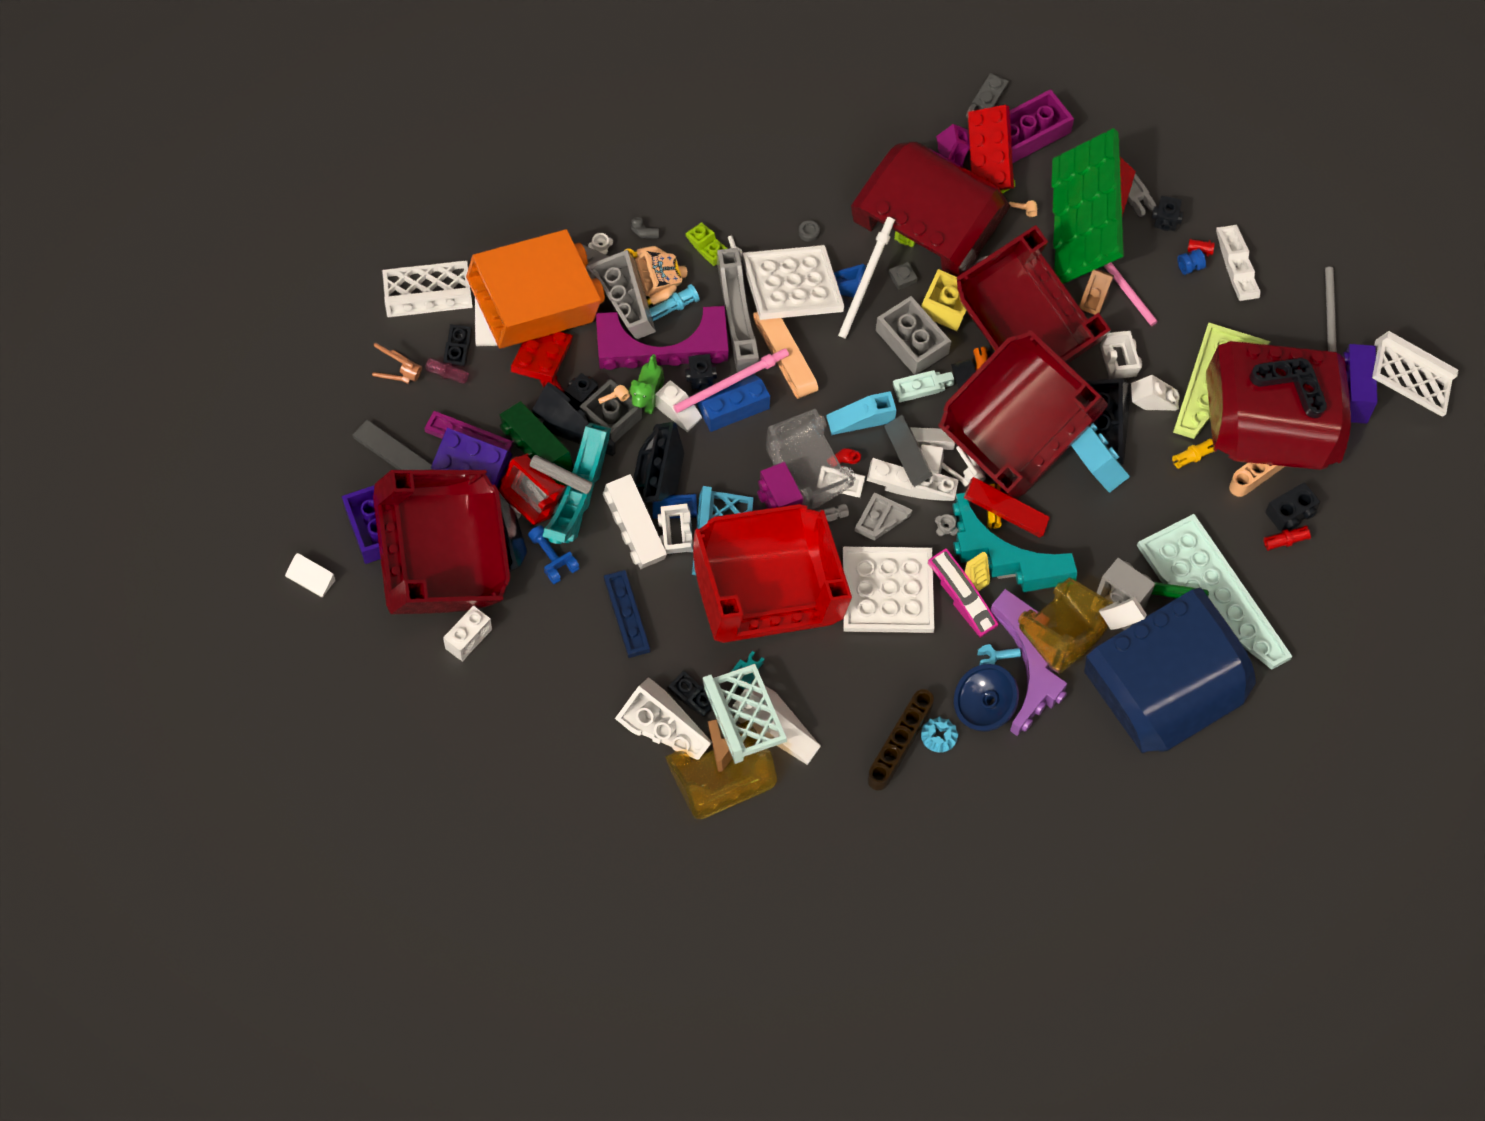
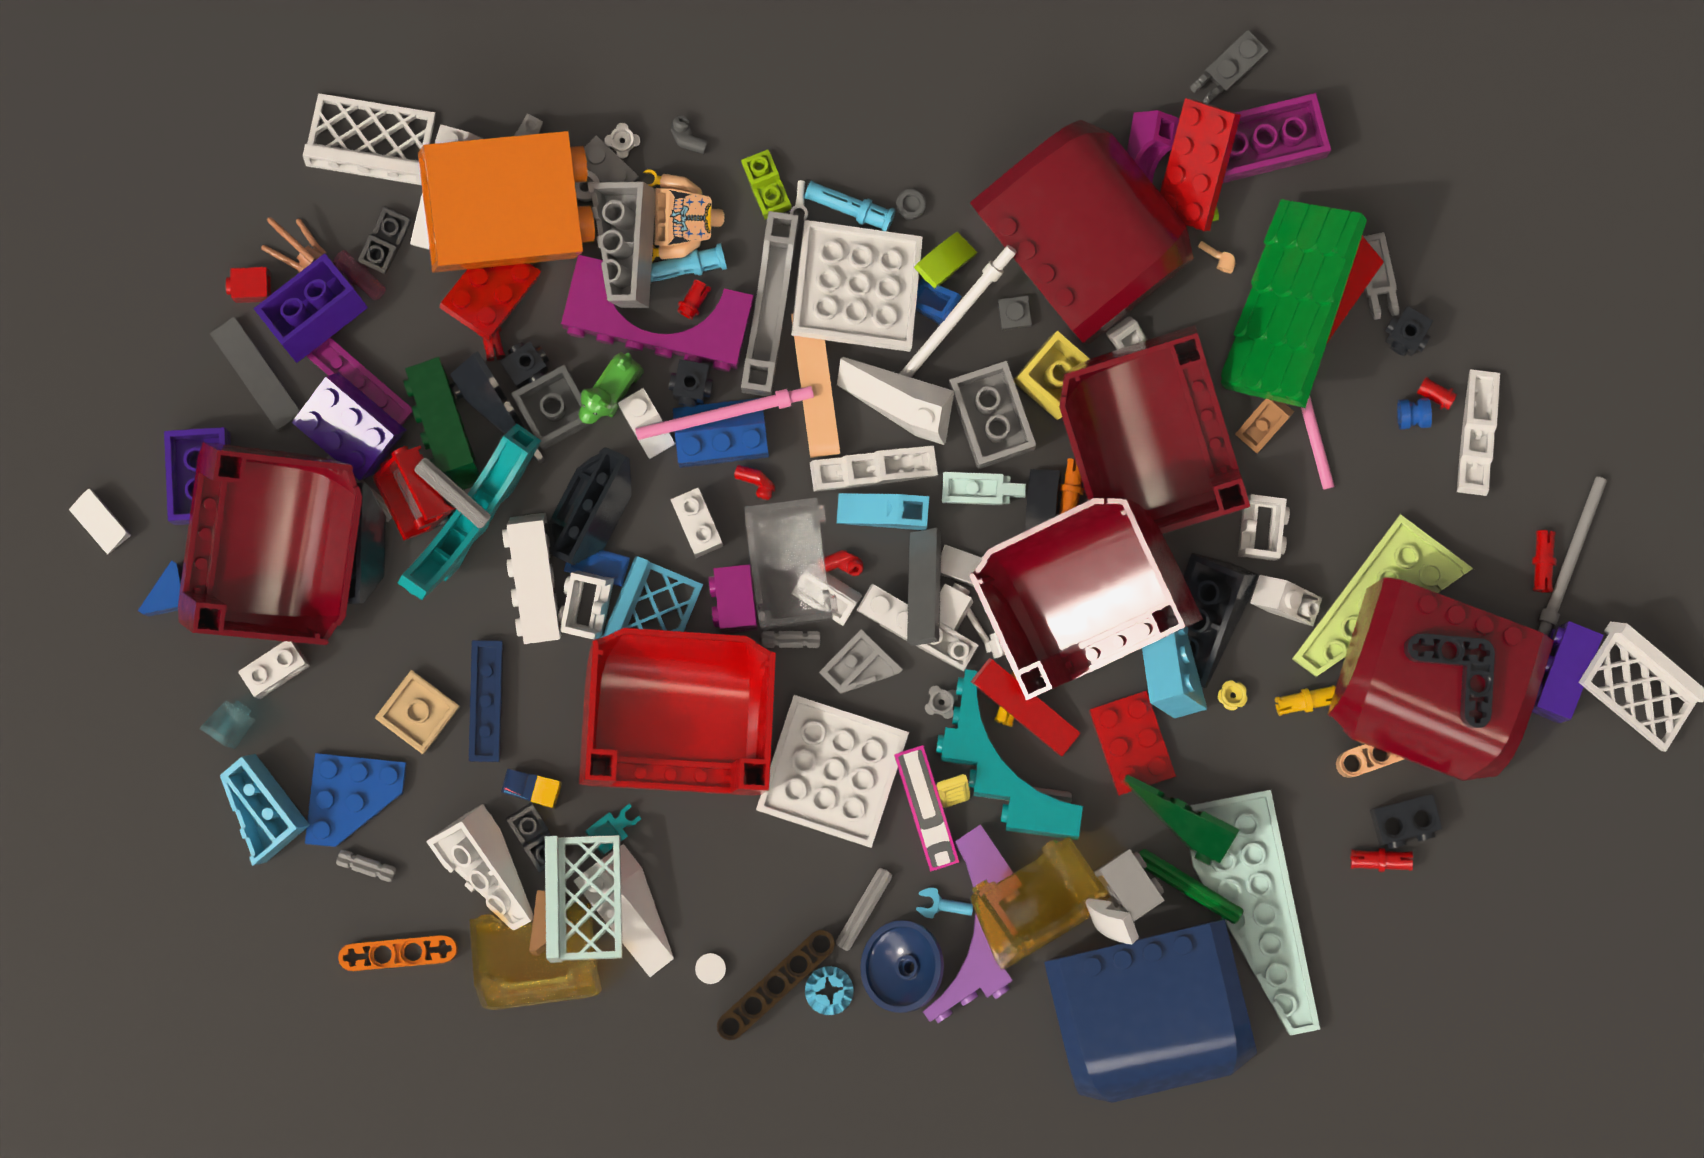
camera: 20 degrees right, 20 degrees up
(372, 396) = (249, 284): none -> red brick
(374, 608) = (165, 593): none -> blue slope
(420, 394) = (310, 308): none -> dark purple brick
(446, 679) = (229, 723): none -> clear light blue slope
(491, 728) = (262, 807): none -> medium azure wedge
(548, 704) = (349, 794): none -> blue plate
(550, 570) = (407, 556): blue bar -> none
(576, 748) = (366, 865): none -> light grey axle
(580, 634) = (417, 712): none -> tan plate
(618, 797) = (398, 956): none -> orange beam
(620, 392) = (569, 392): light nougat hand -> none
(675, 661) = (531, 788): none -> leg
(682, 328) = (693, 299): none -> red pin
(736, 457) = (697, 522): none -> white brick
(764, 419) = (756, 477): none -> red arm
(778, 241) = (863, 211): none -> medium azure pin
(845, 253) = (945, 260): none -> lime slope
(846, 392) = (873, 468): none -> white slope
(849, 744) = (710, 968): none -> white tile
(851, 344) = (909, 402): none -> white wedge
(943, 673) = (863, 909): none -> light grey axle
(1087, 514) = (1132, 741): none -> red plate
(1147, 461) = (1237, 688): none -> light yellow plate
(1157, 546) = (1197, 830): none -> dark green wedge
(1314, 326) = (1544, 561): none -> red pin

